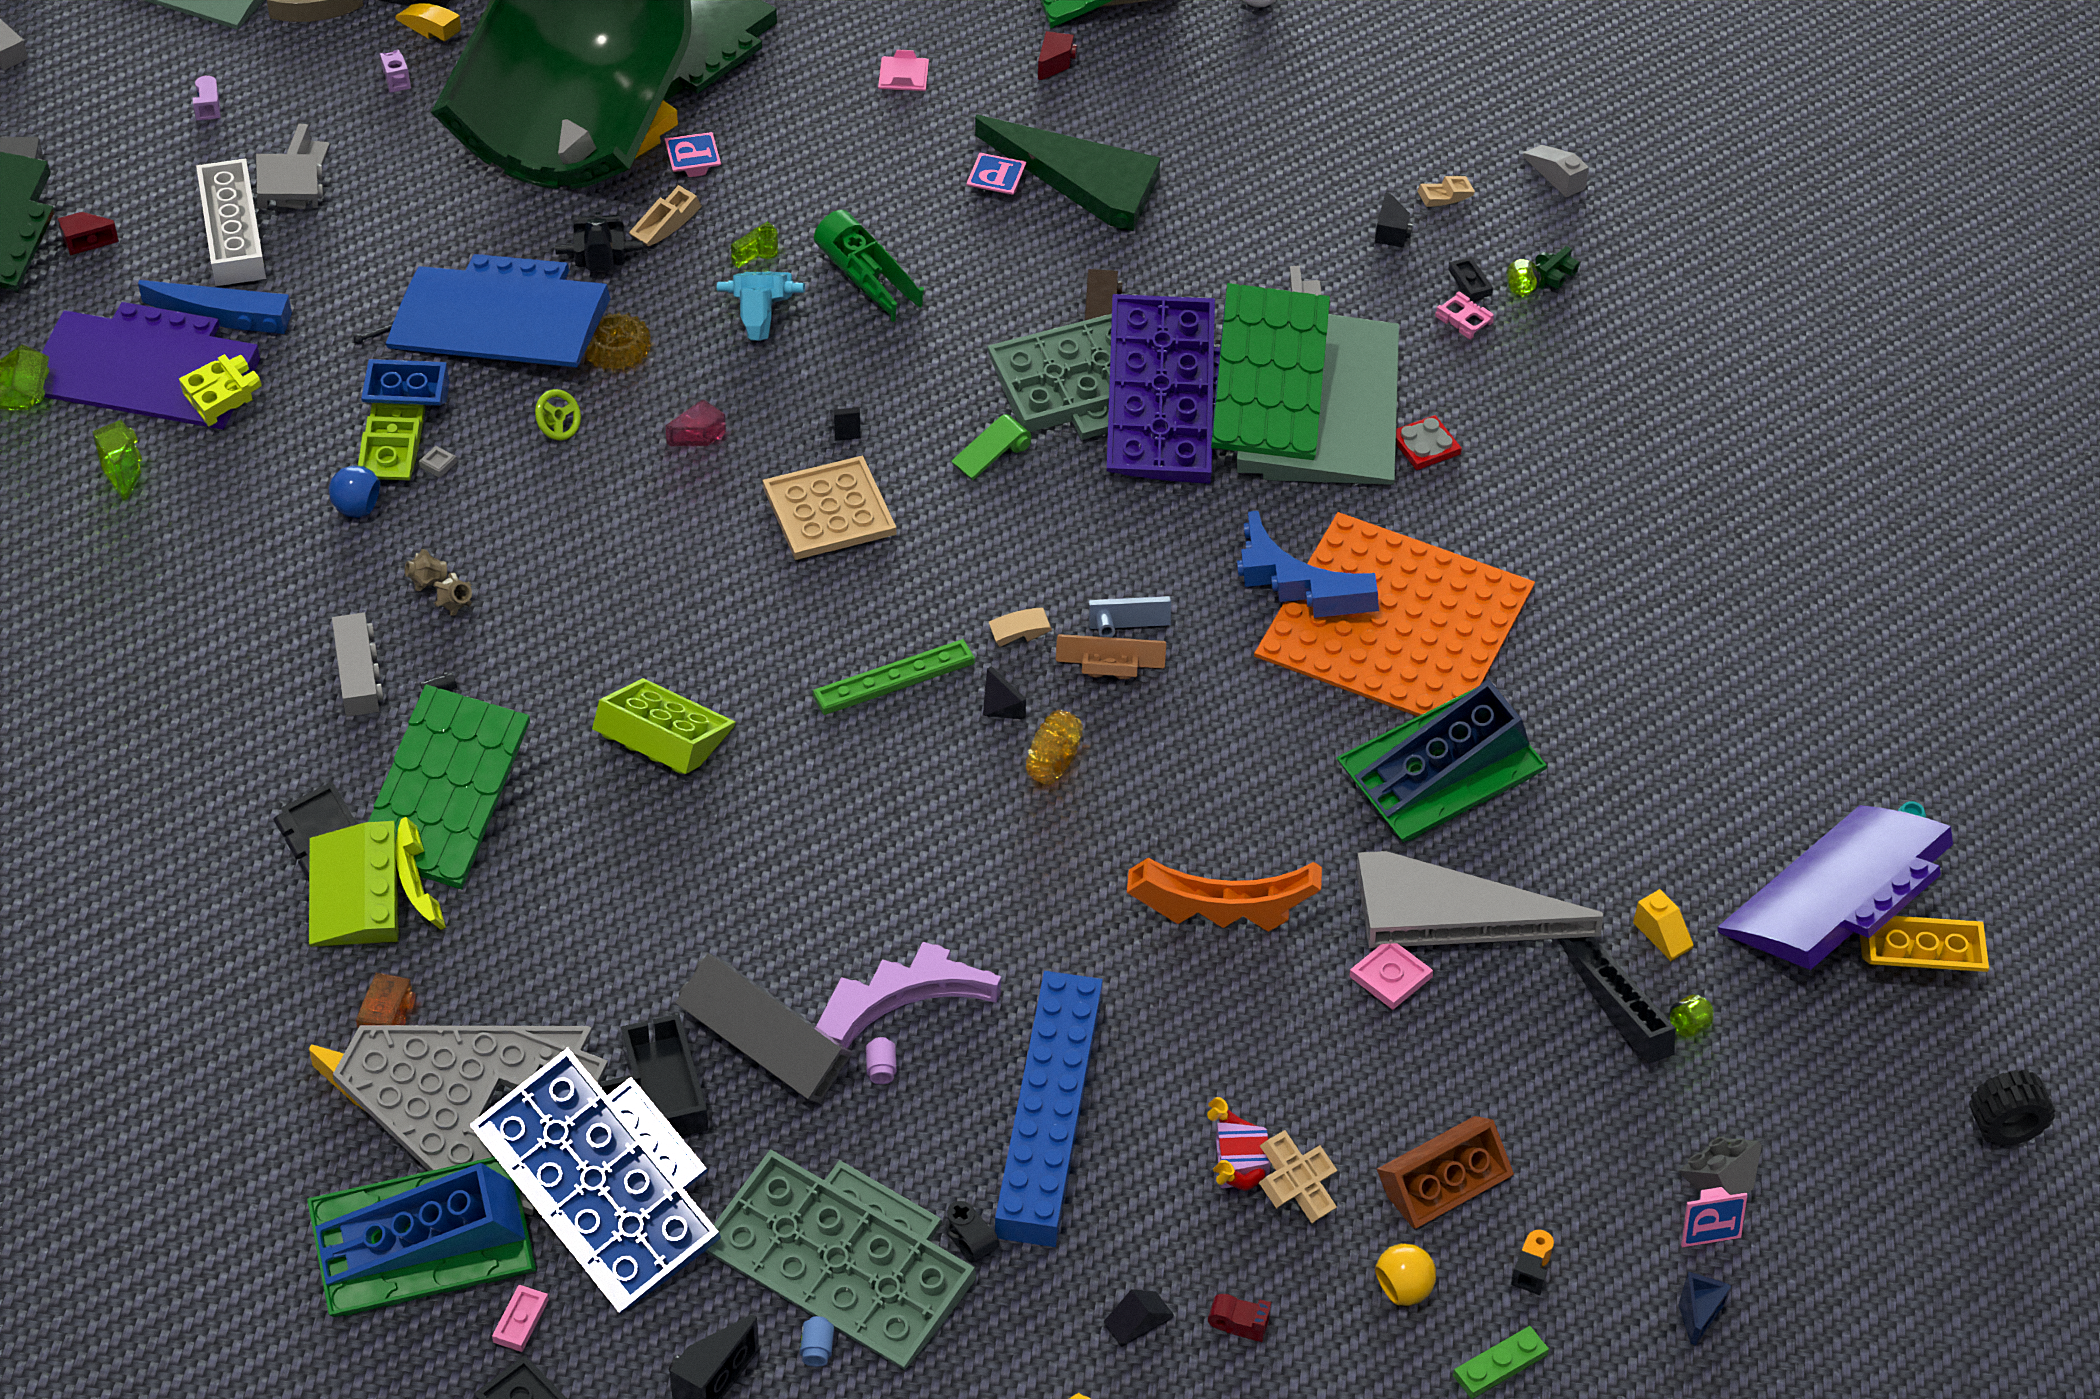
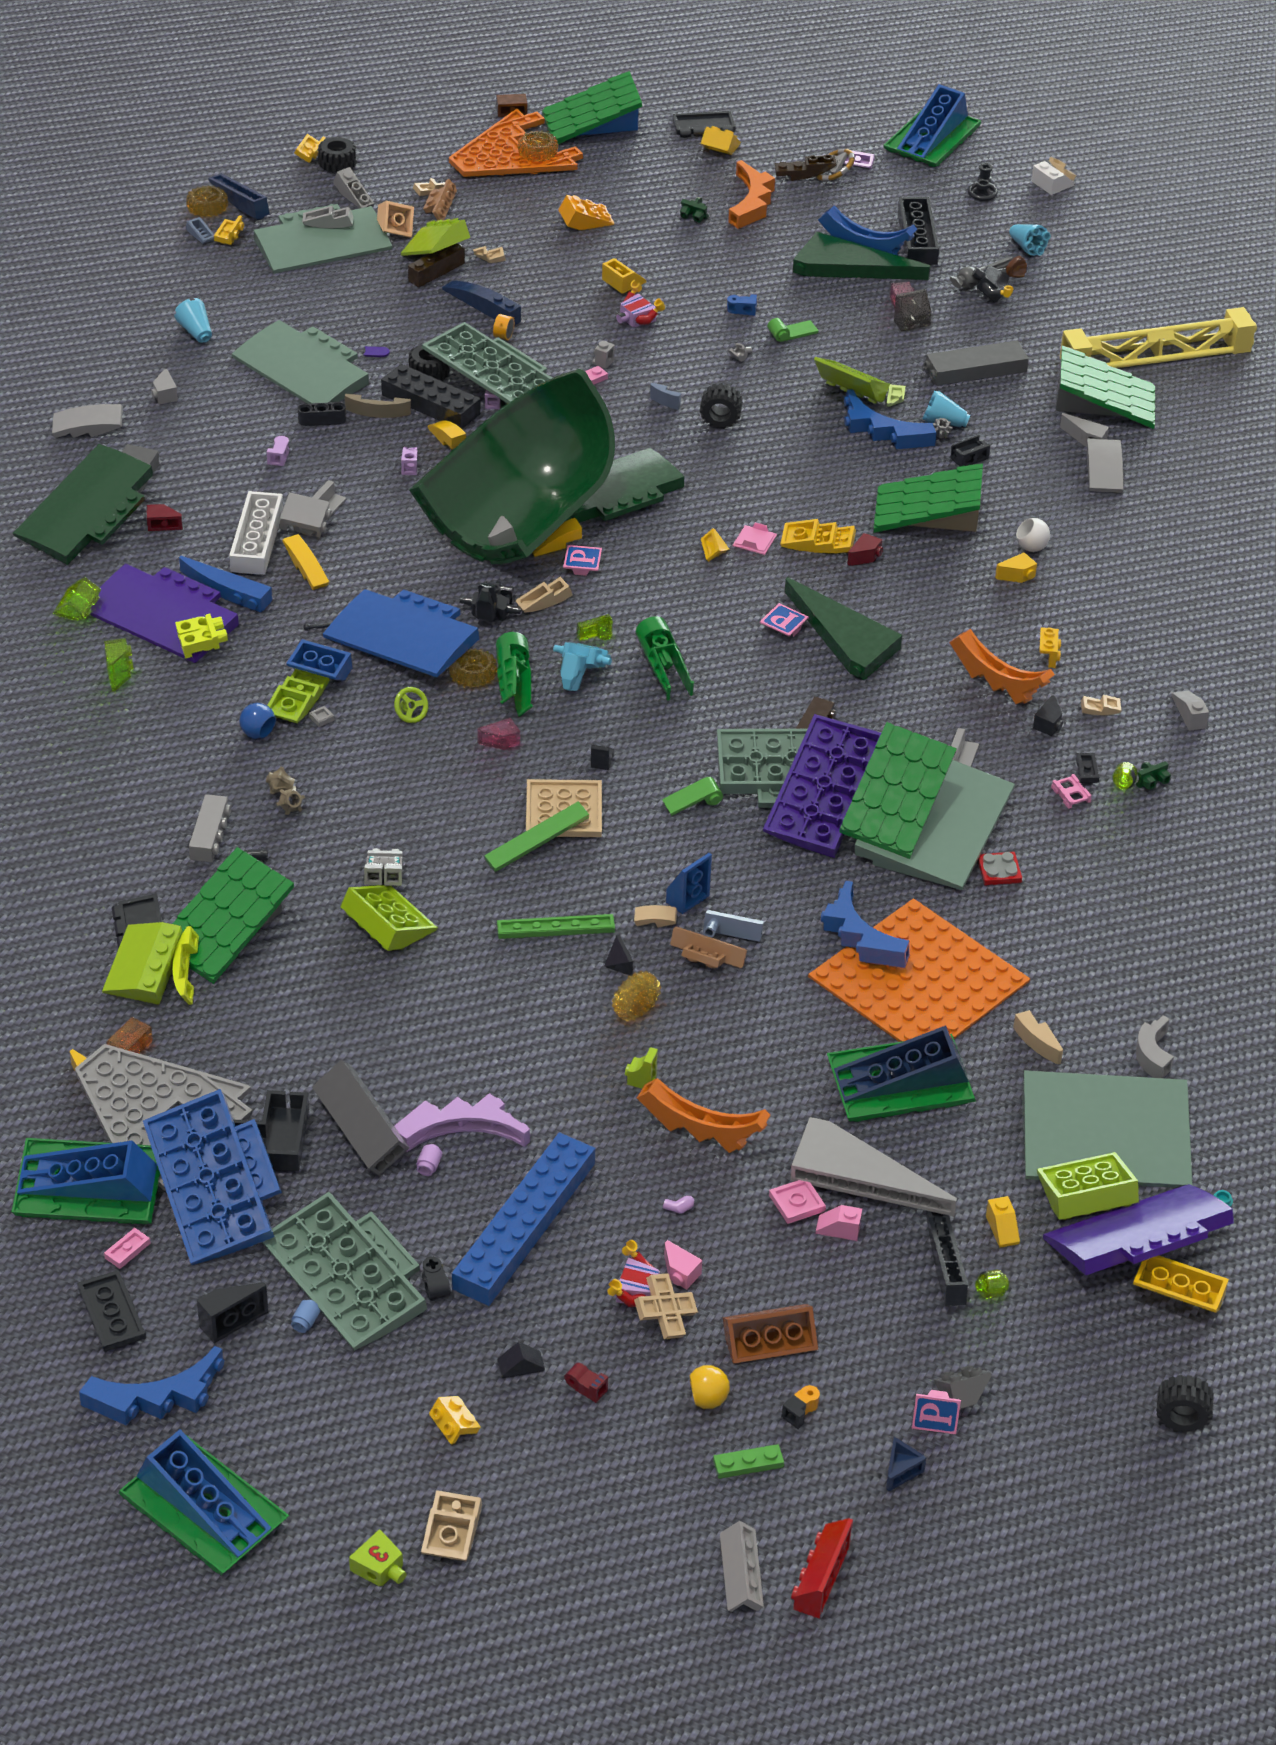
camera: 20 degrees right, 5 degrees down
(243, 32) = (321, 414): none -> black beam
(316, 245) = (305, 561): none -> yellow slope
(627, 653) = (383, 862): none -> light grey hips
(676, 333) = (514, 670): none -> green piece
(813, 557) = (536, 836): none -> bright green tile
(854, 93) = (713, 545): none -> yellow slope
(986, 51) = (817, 537): none -> yellow slope
(1051, 573) = (690, 885): none -> blue slope
(1109, 849) = (642, 1069): none -> lime arch
(1244, 1026) = (679, 1206): none -> lavender arm
(1258, 34) = (1016, 569): none -> yellow slope
(1284, 1110) = (681, 1265): none -> bright pink slope
(1307, 182) = (982, 662): none -> orange arch
(1350, 126) = (1050, 645): none -> yellow bracket
(1461, 988) = (840, 1222): none -> bright pink slope
(1585, 658) = (1038, 1036): none -> tan slope
(1727, 761) = (1097, 1115): none -> sand green slope
(1728, 641) = (1148, 1054): none -> light grey arch
(1745, 843) = (1089, 1185): none -> lime slope

